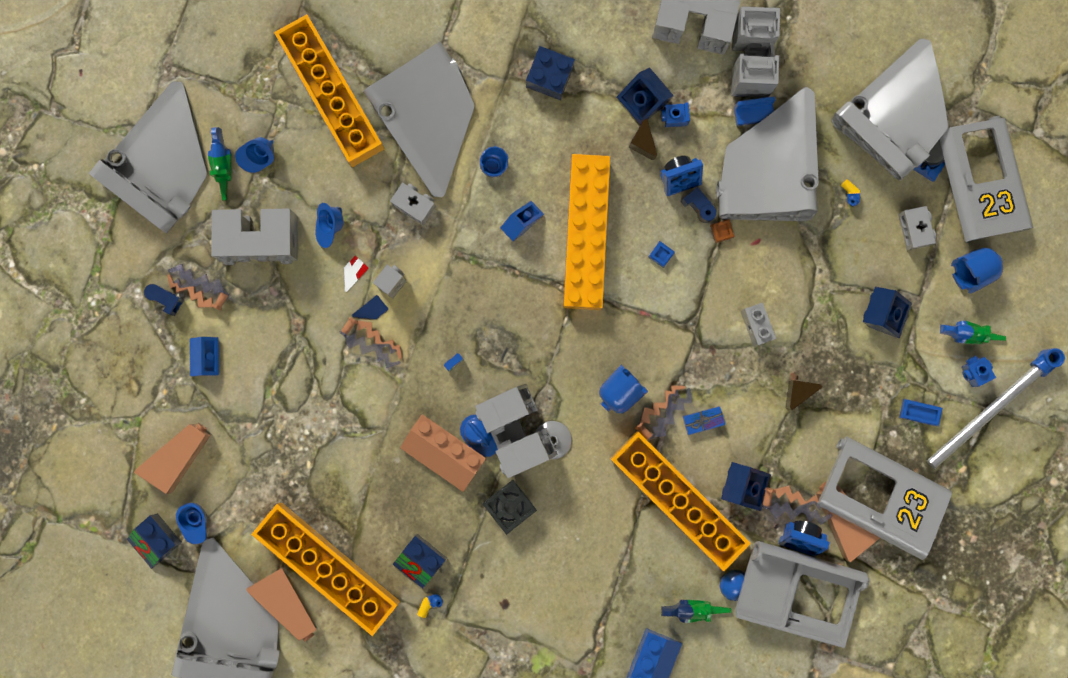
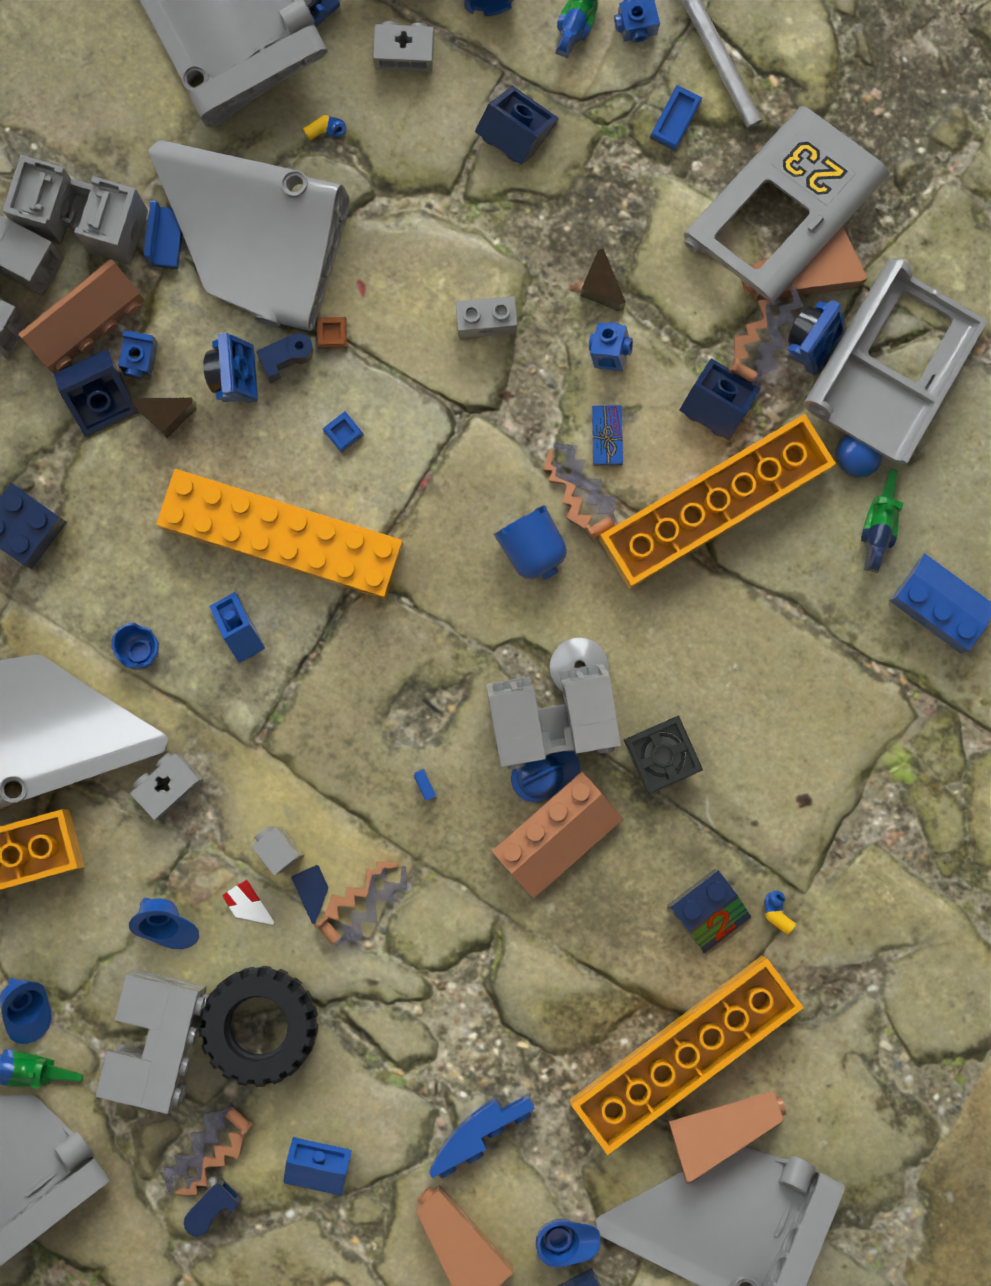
camera: 75 degrees left, 0 degrees up
(242, 445) = (467, 1139): none -> blue slope
(259, 283) = (229, 1055): none -> black tyre
(689, 74) = (82, 317): none -> nougat slope
(761, 407) = (610, 346): none -> blue brick

